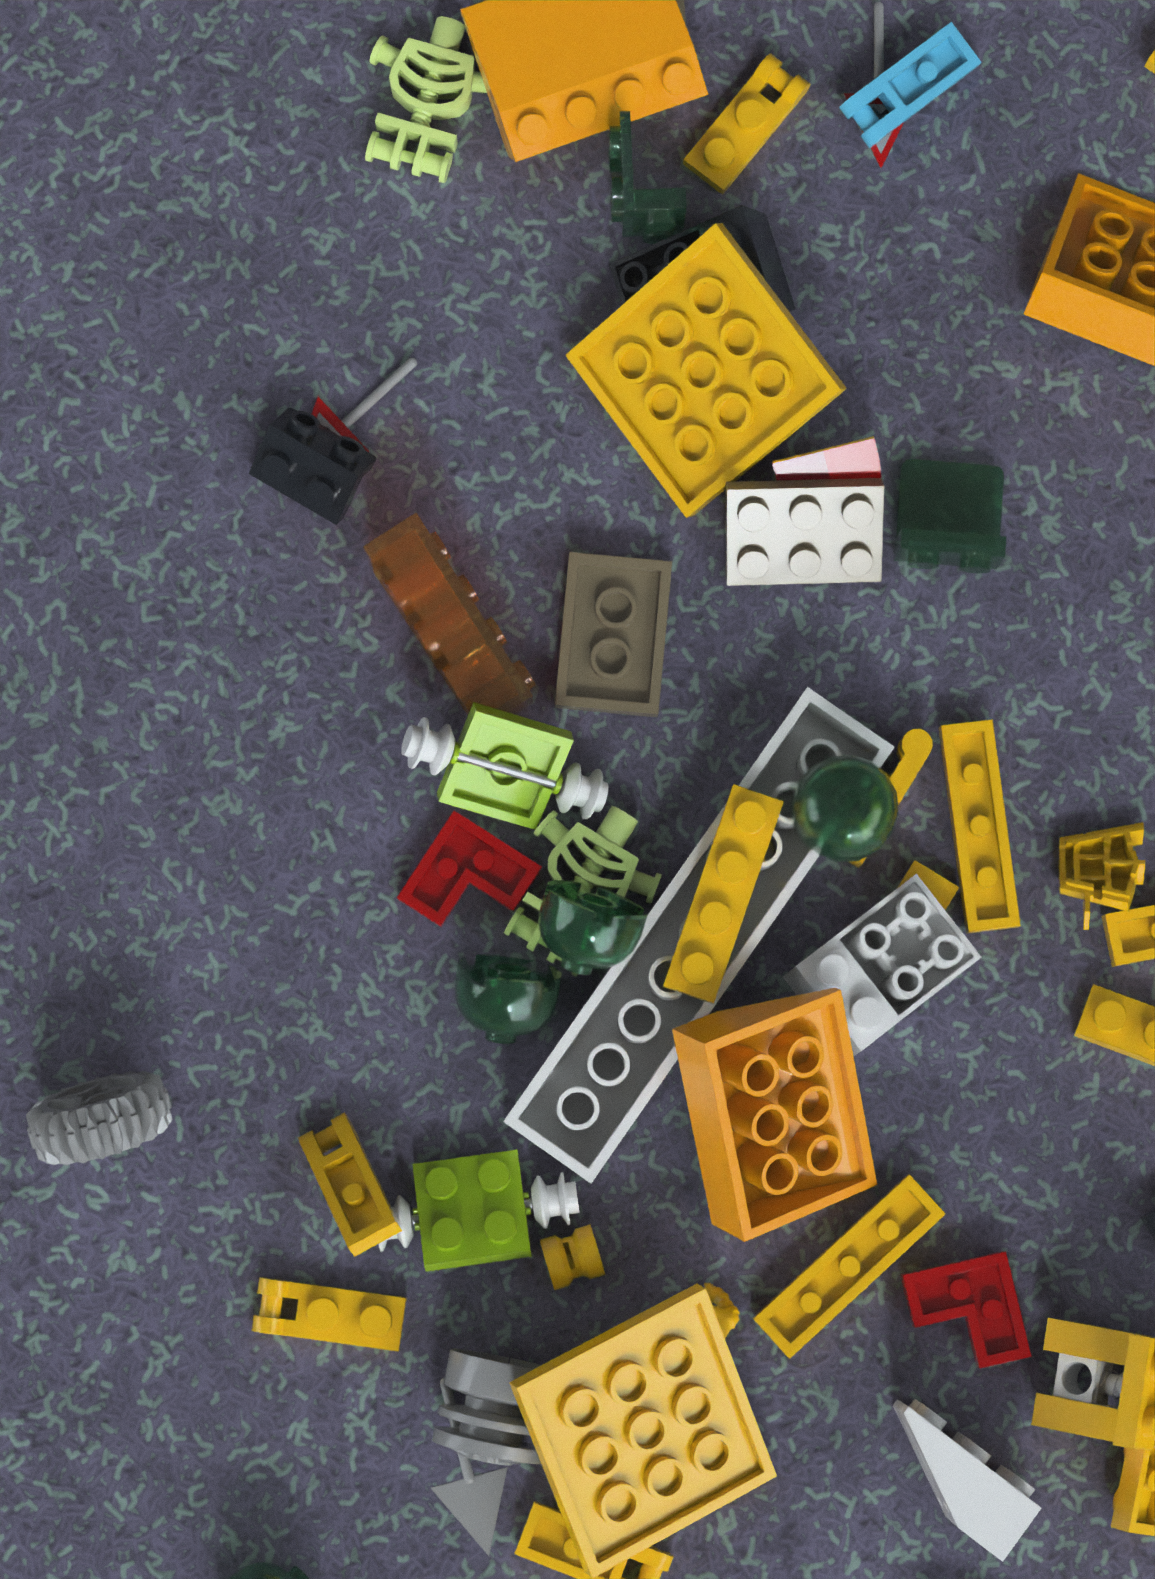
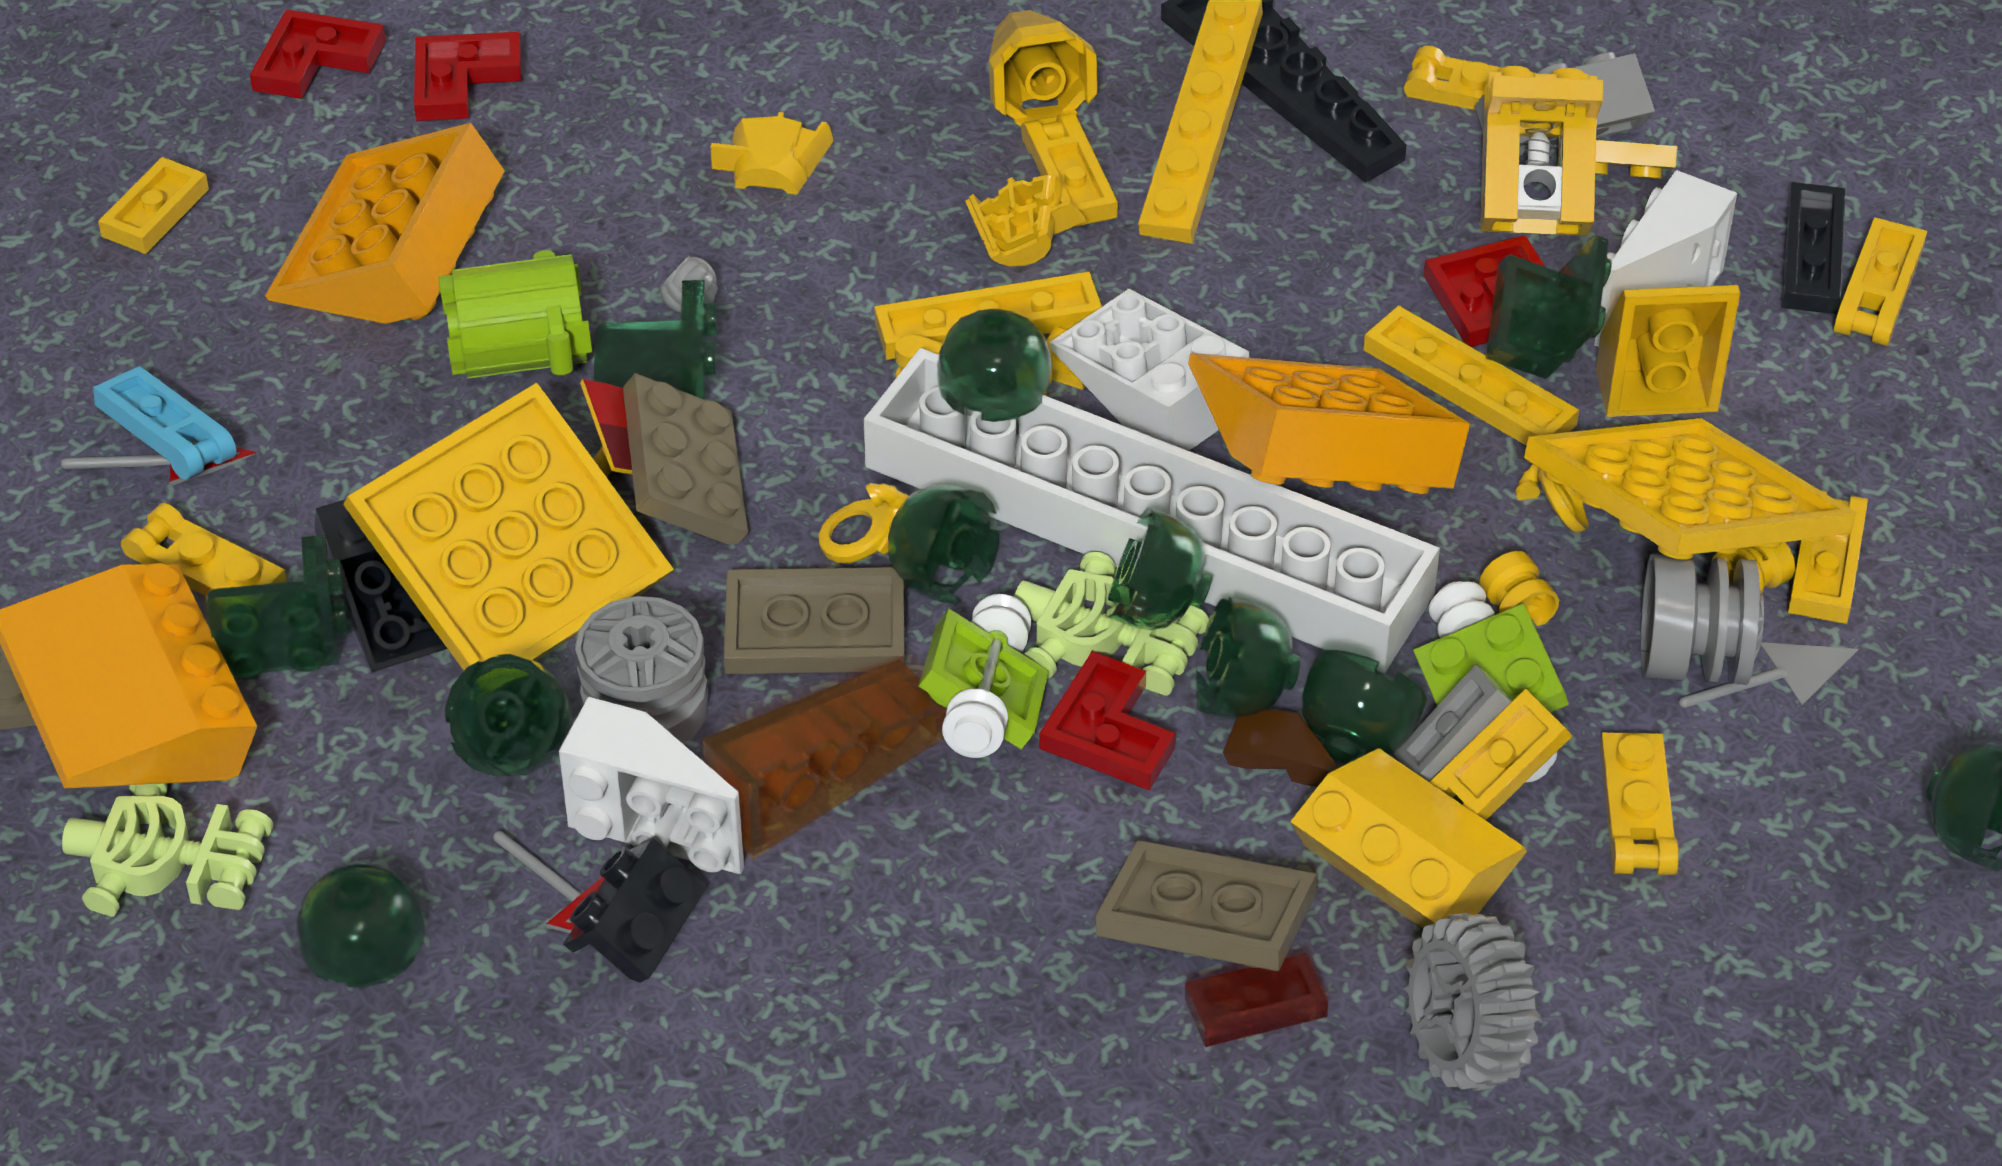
camera: 95 degrees left, 35 degrees down
(159, 952) = (1255, 1000): none -> clear red plate
(248, 924) = (1207, 905): none -> dark tan plate
(286, 1100) = (1405, 839): none -> yellow slope
(326, 250) = (360, 925): none -> clear green cylinder
(400, 1161) = (1453, 724): none -> light grey plate
(417, 473) = (641, 783): none -> white slope
(425, 1018) = (1278, 742): none -> reddish brown slope
(441, 1084) = (1358, 708): none -> clear green cylinder
(508, 368) = (508, 716): none -> clear green cylinder
(543, 507) = (646, 659): none -> light grey wheel
(679, 744) = (946, 529): none -> clear green cylinder
(723, 894) = (1103, 460): yellow plate -> none
(730, 699) = (880, 508): none -> yellow piece
(834, 1451) = (1666, 350): none -> yellow slope
(894, 1348) = (1546, 313): none -> clear green bracket
(994, 392) = (515, 317): none -> lime container
(1042, 552) = (690, 269): none -> light grey piece

